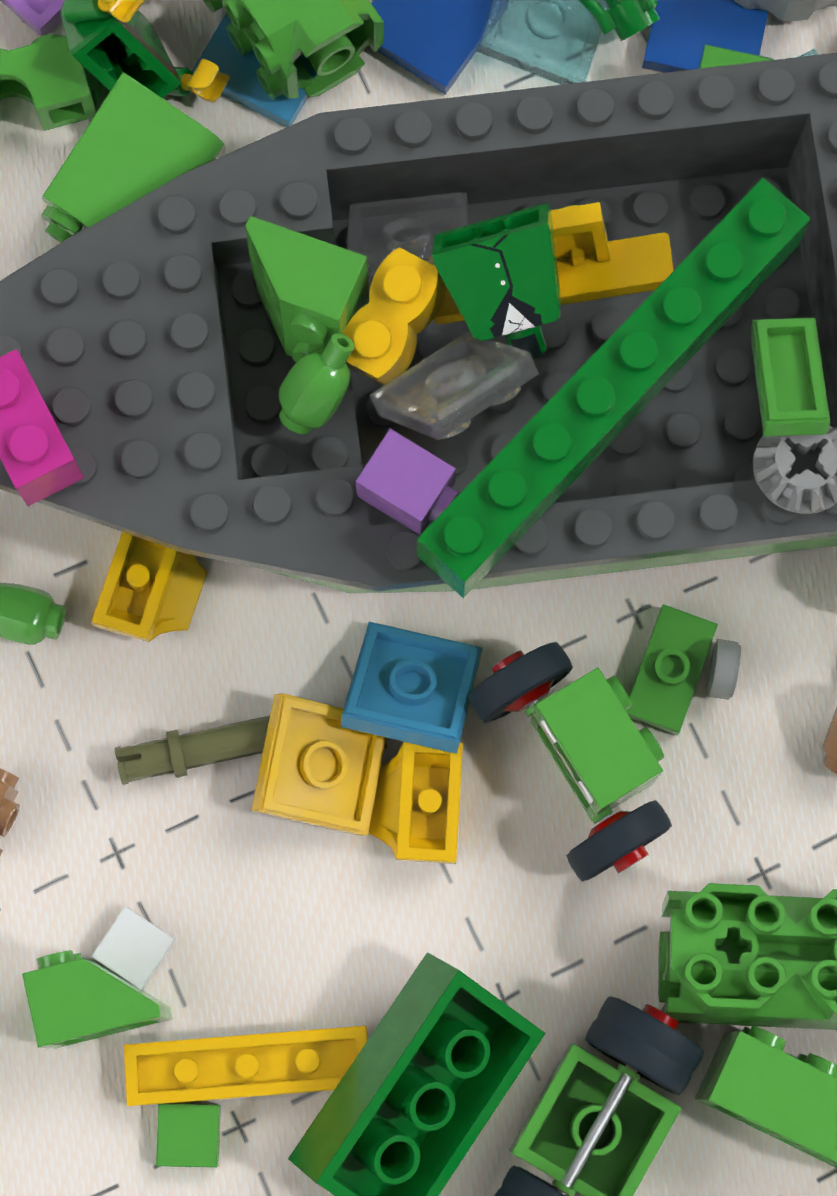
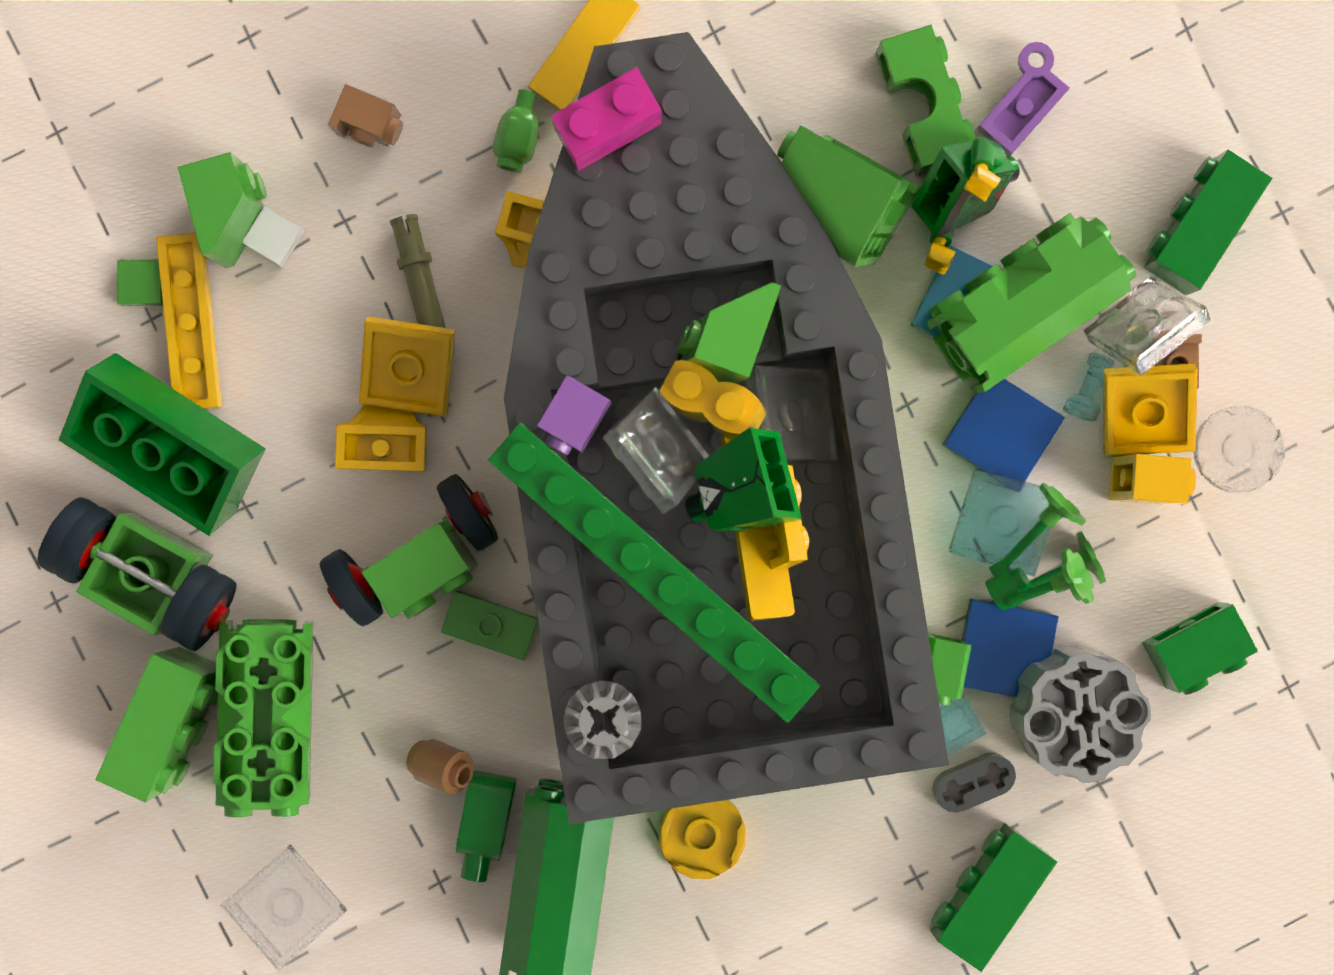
camera: 90 degrees right, 10 degrees up
(316, 386) = (656, 344): bright green plant -> none
(411, 687) = (462, 431): dark azure tile -> none
(724, 669) = (488, 665): light grey tile -> none
(789, 377) = (668, 708): bright green tile -> none

